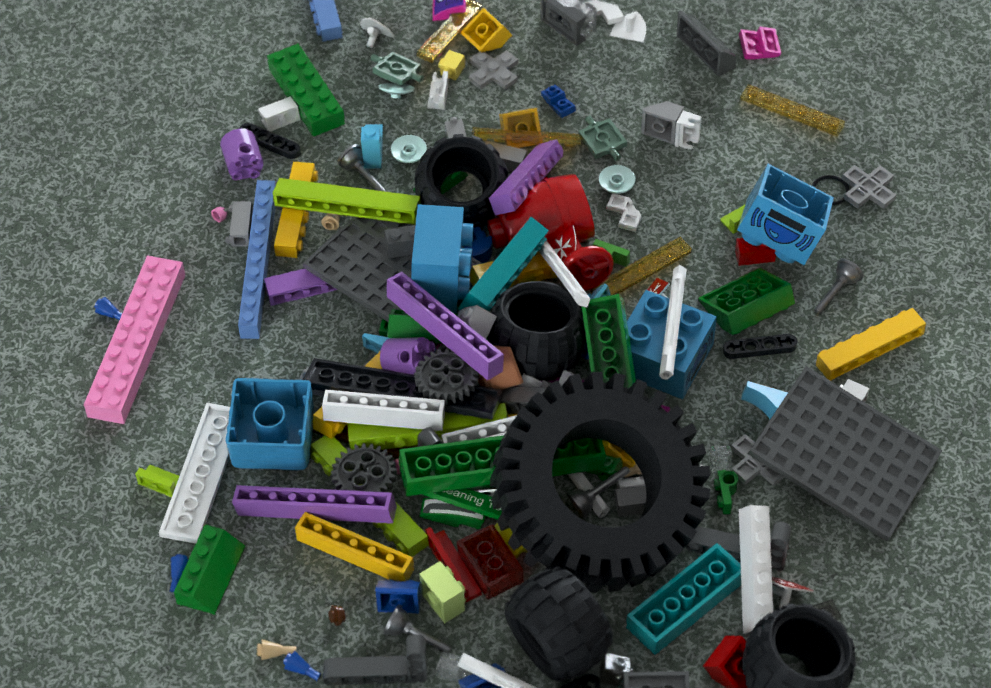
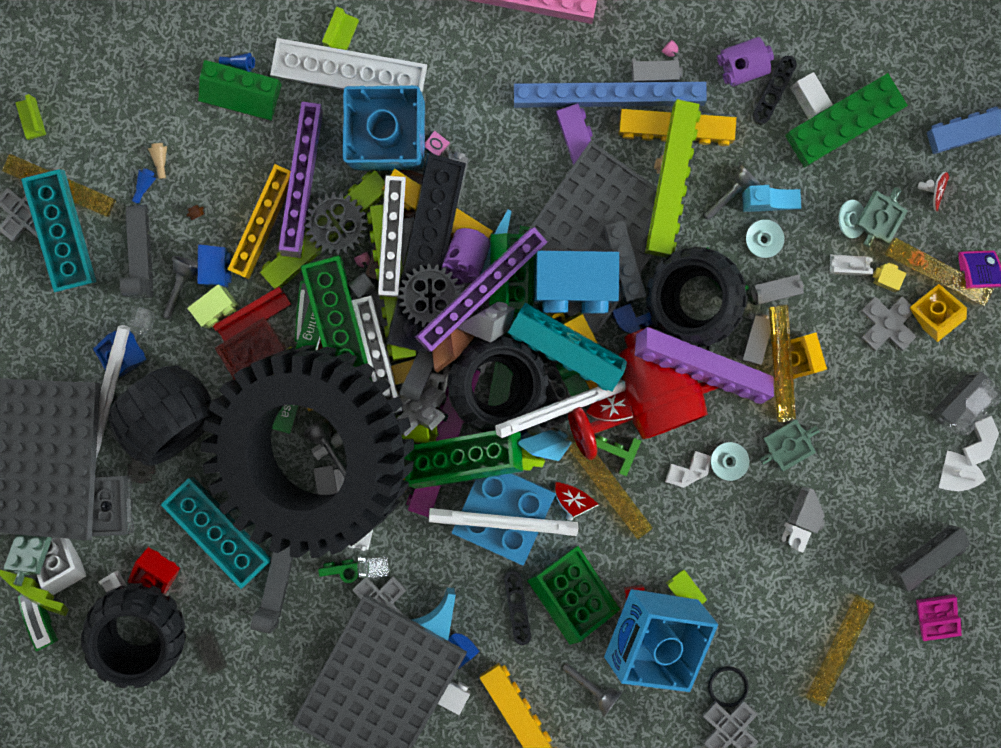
camera: 90 degrees right, 35 degrees up
(557, 101) = (843, 396): blue slope -> none
(755, 565) = (234, 598): white brick -> none
(786, 592) = (235, 624): white shield -> none

